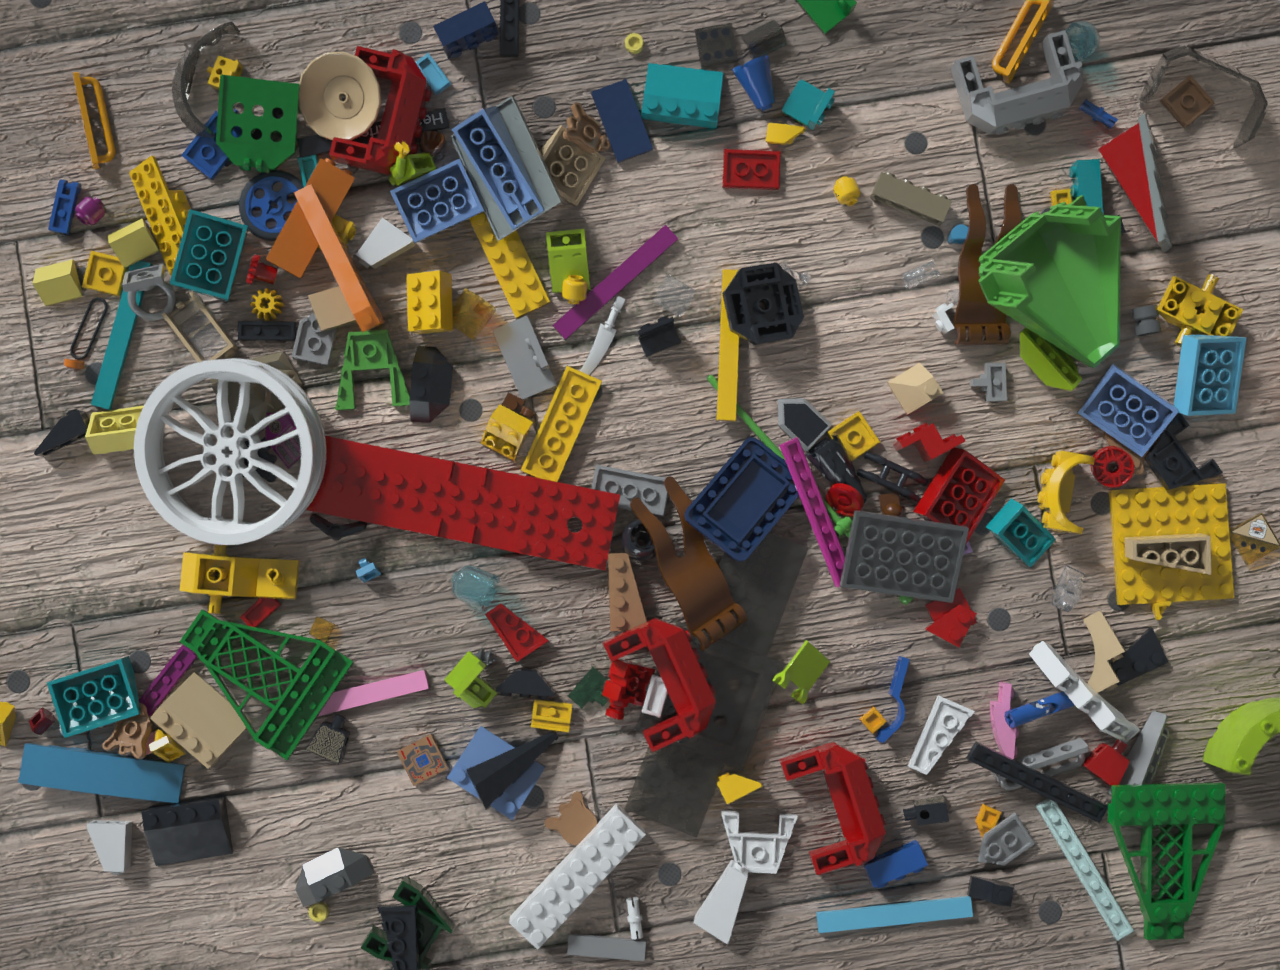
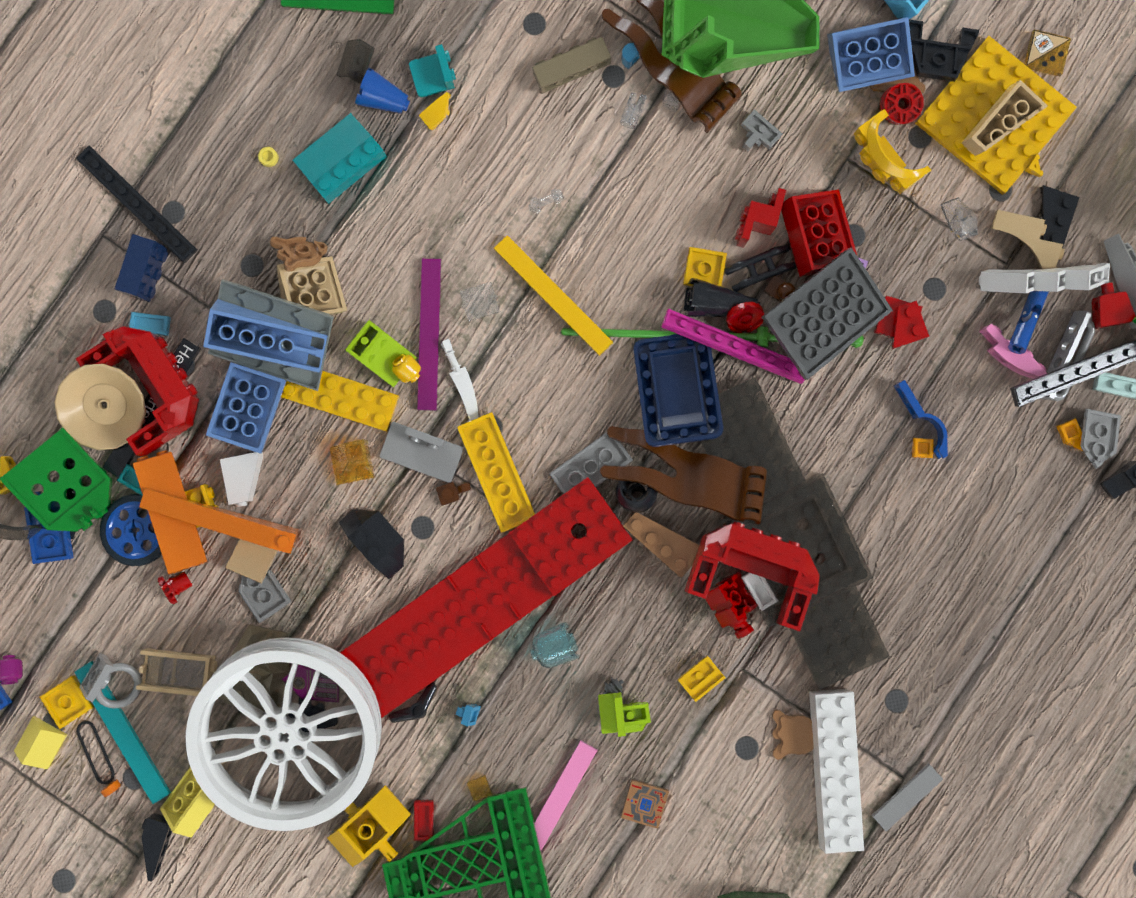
camera: 40 degrees left, 0 degrees up
(132, 243) = (63, 661): light yellow slope -> none
(163, 207) = (65, 615): yellow bracket -> none
(209, 255) = (125, 613): teal slope -> none
(260, 304) = (197, 607): yellow gear -> none
(267, 331) = (222, 622): black tile -> none
(277, 578) = (412, 786): yellow tile -> none
(330, 740) = (567, 859): black torso -> none
(368, 352) = (310, 560): bright green wing -> none
(416, 165) = (205, 398): torso -> none
(429, 302) = (315, 483): yellow brick -> none
(482, 748) = (705, 758): medium blue slope -> none
(498, 773) = (708, 759): black wedge -> none
(506, 432) = (463, 516): yellow slope -> none
(515, 632) = (615, 648): red wing -> none
(526, 683) = (661, 675): black slope -> none
(589, 689) = (708, 632): clear green hinge -> none
(621, 121) = (316, 219): dark blue tile -> none
(634, 918) = (905, 756): white pin -> none
(658, 336) = (499, 340): black bracket -> none
(716, 45) = (326, 99): clear smoke tile -> none
(722, 904) = (955, 684): white slope -> none
(736, 786) = (881, 592): yellow slope -> none
(751, 169) = (441, 159): red tile -> none
(758, 850) = (940, 621): white wing -> none
(776, 291) = (549, 224): black piece -> none
(801, 420) = (657, 295): black tile -> none
(803, 671) = (841, 465): lime flag -> none
(846, 191) = (522, 105): yellow head -> none
(852, 800) = (970, 518): red wedge -> none
(894, 914) = (1077, 565): medium azure tile -> none
(895, 864) = (1042, 530): blue brick -> none
(914, 388) = (711, 191): tan slope -> none
(936, 810) = (1029, 463): black torso -> none
(940, 728) = (974, 405): white wing -> none
(942, 321) = (680, 125): white bracket -> none
(1021, 532) = (887, 213): teal slope -> none
(1048, 361) = (783, 77): lime wedge -> none

